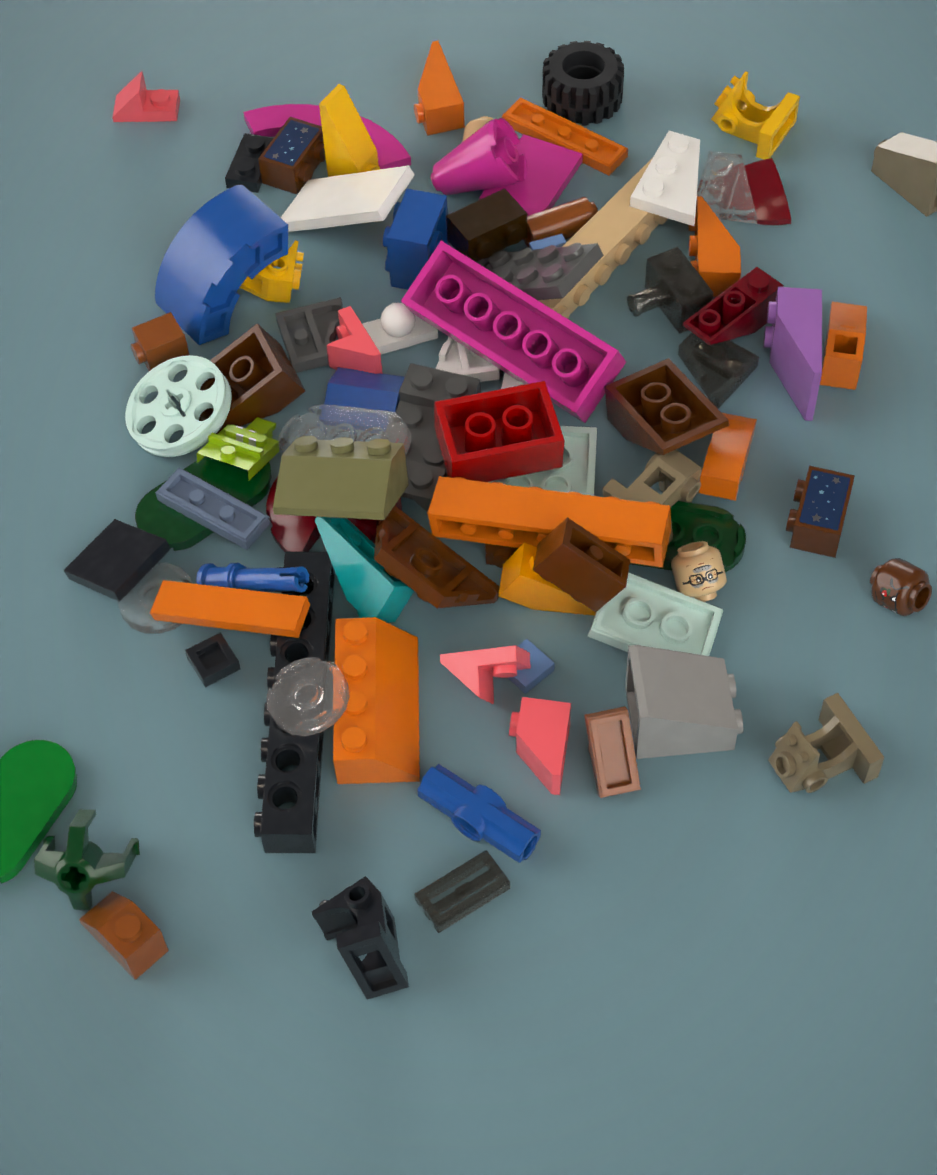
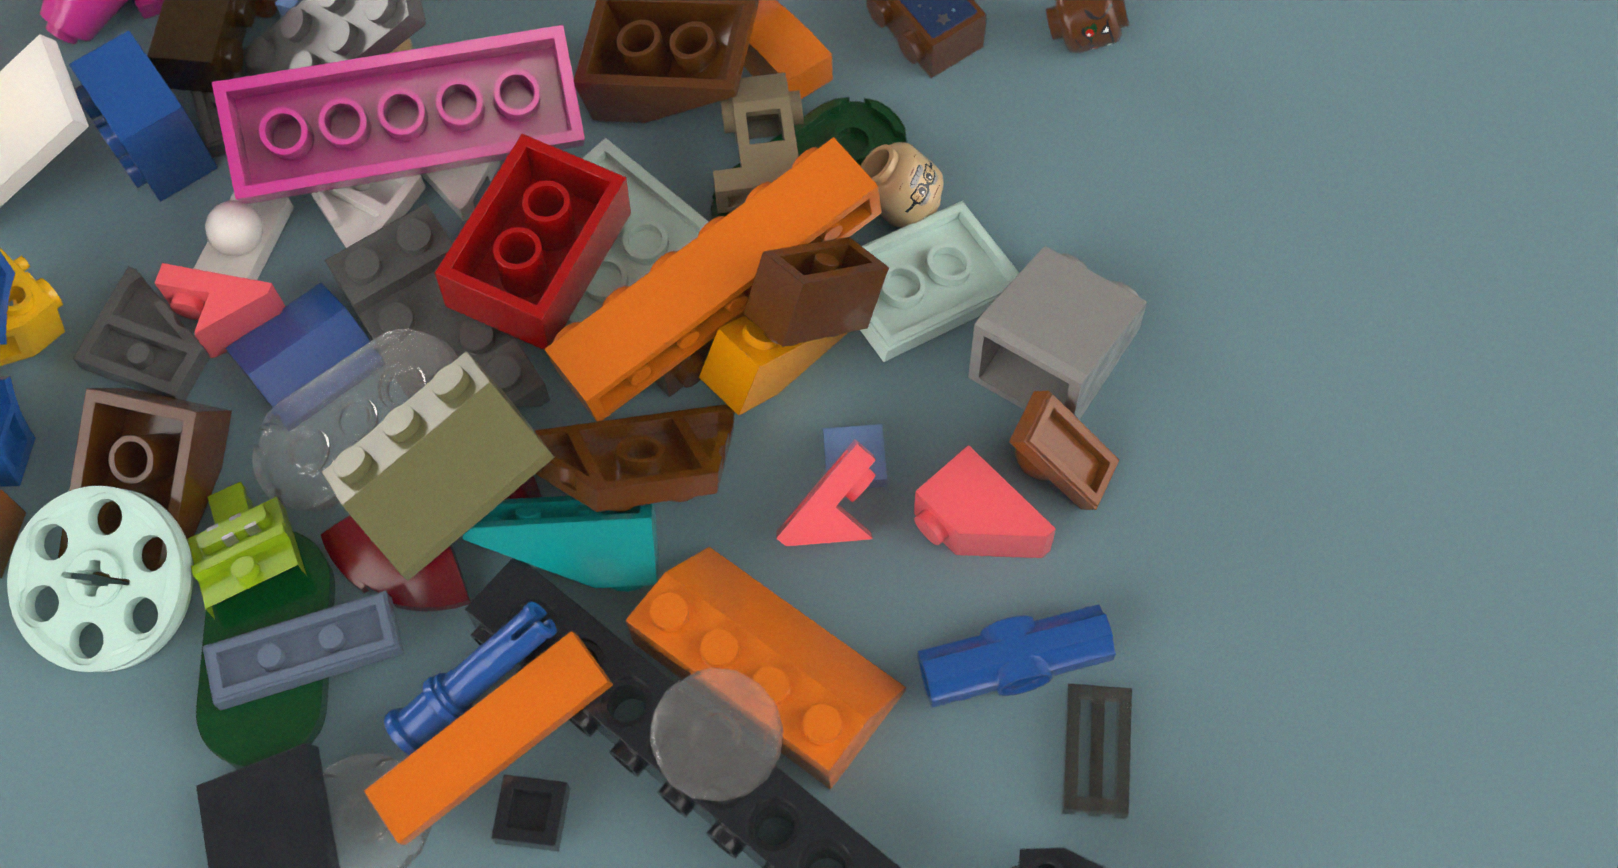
camera: 50 degrees left, 10 degrees up
(841, 741) = (1227, 253): dark tan tile -> none

